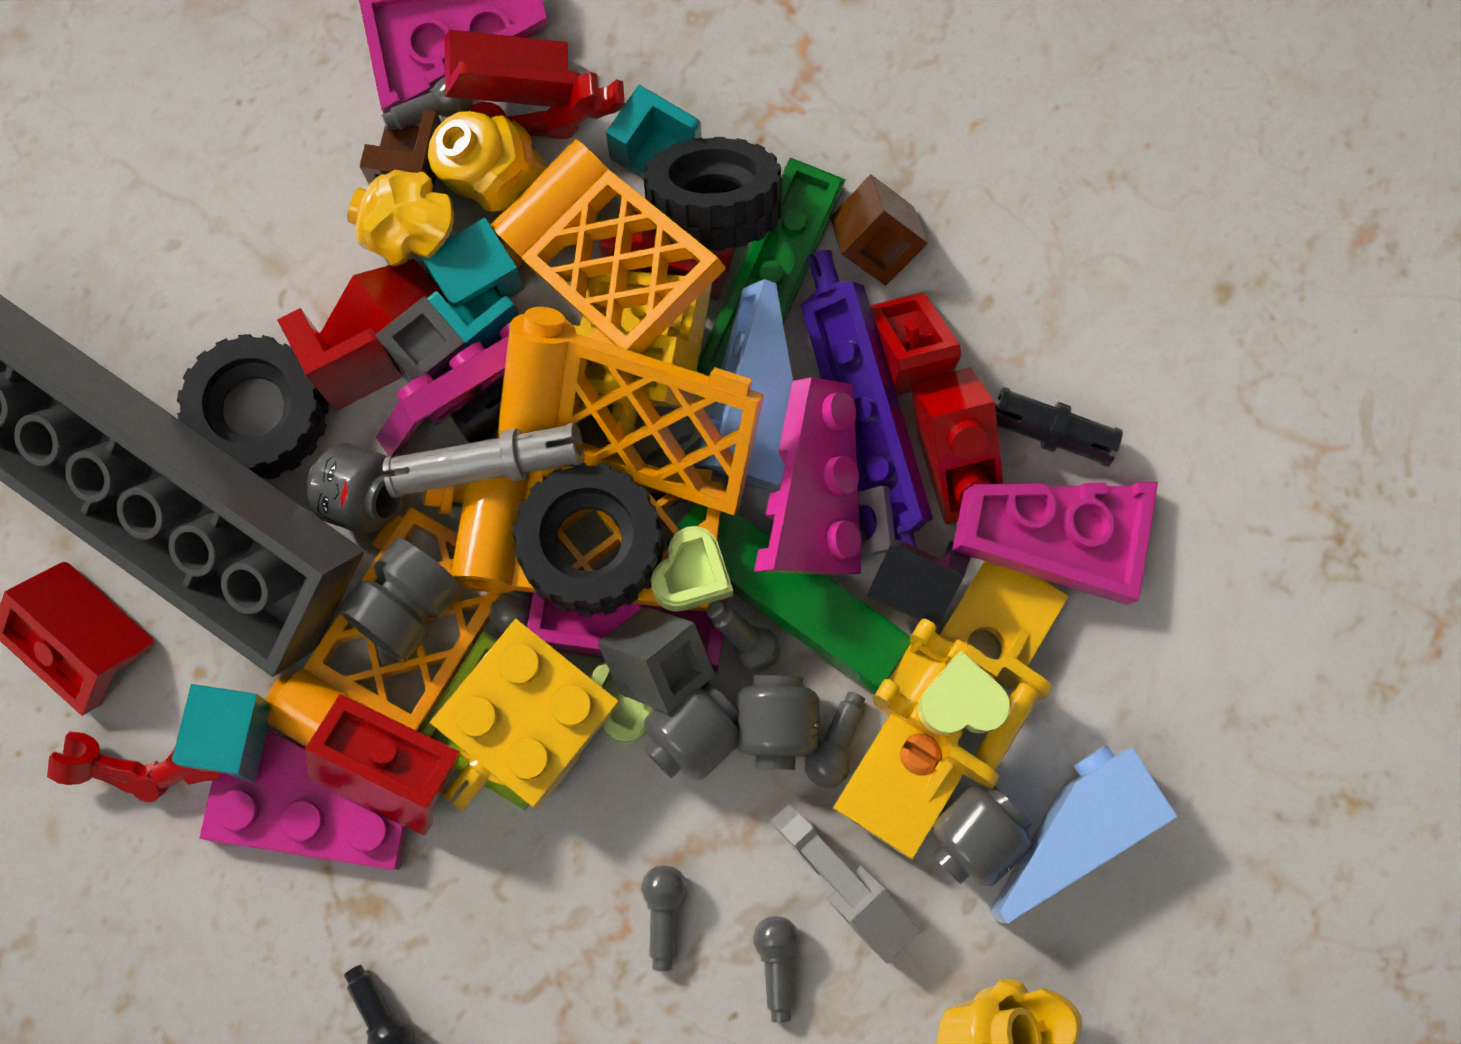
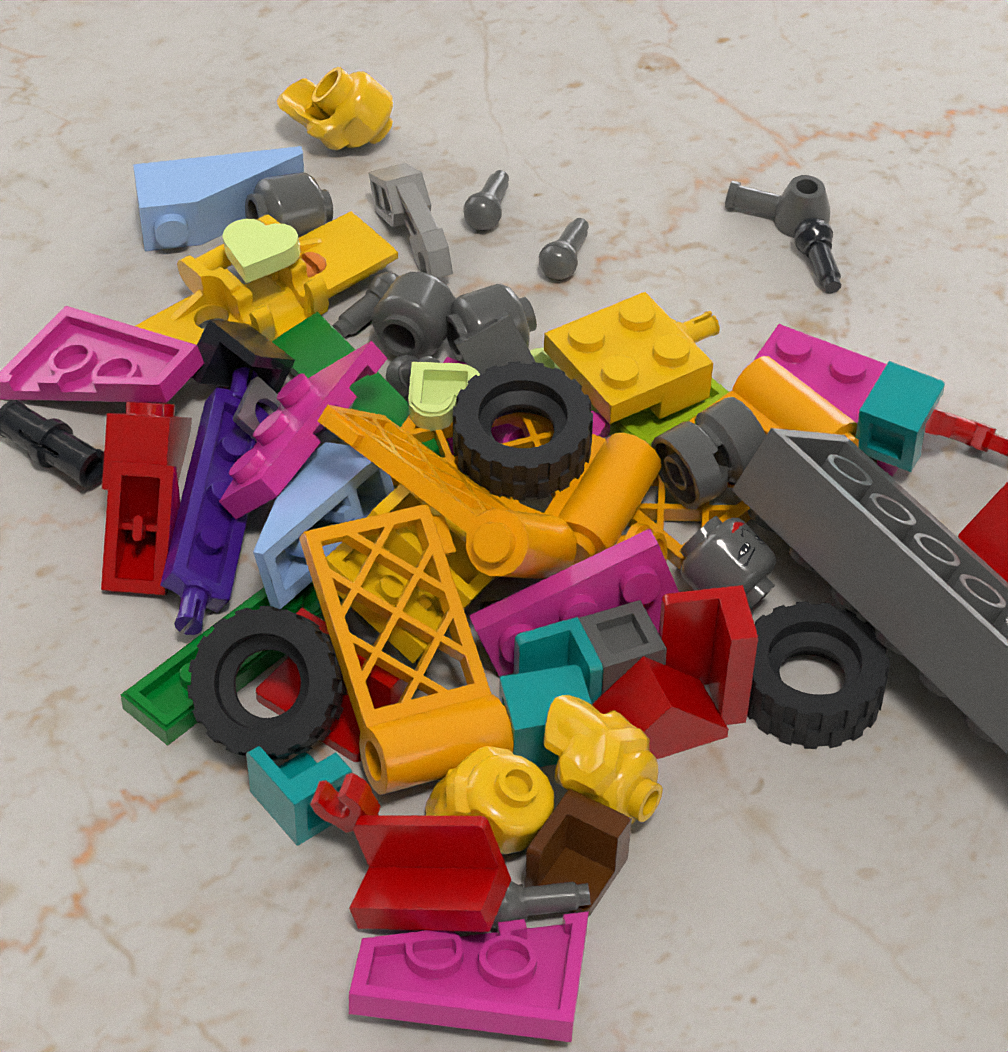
camera: 160 degrees left, 30 degrees down
(380, 763) = (764, 351): red panel -> none
(508, 456) = (582, 500): light grey pin -> none
(878, 230) = (115, 634): reddish brown panel -> none

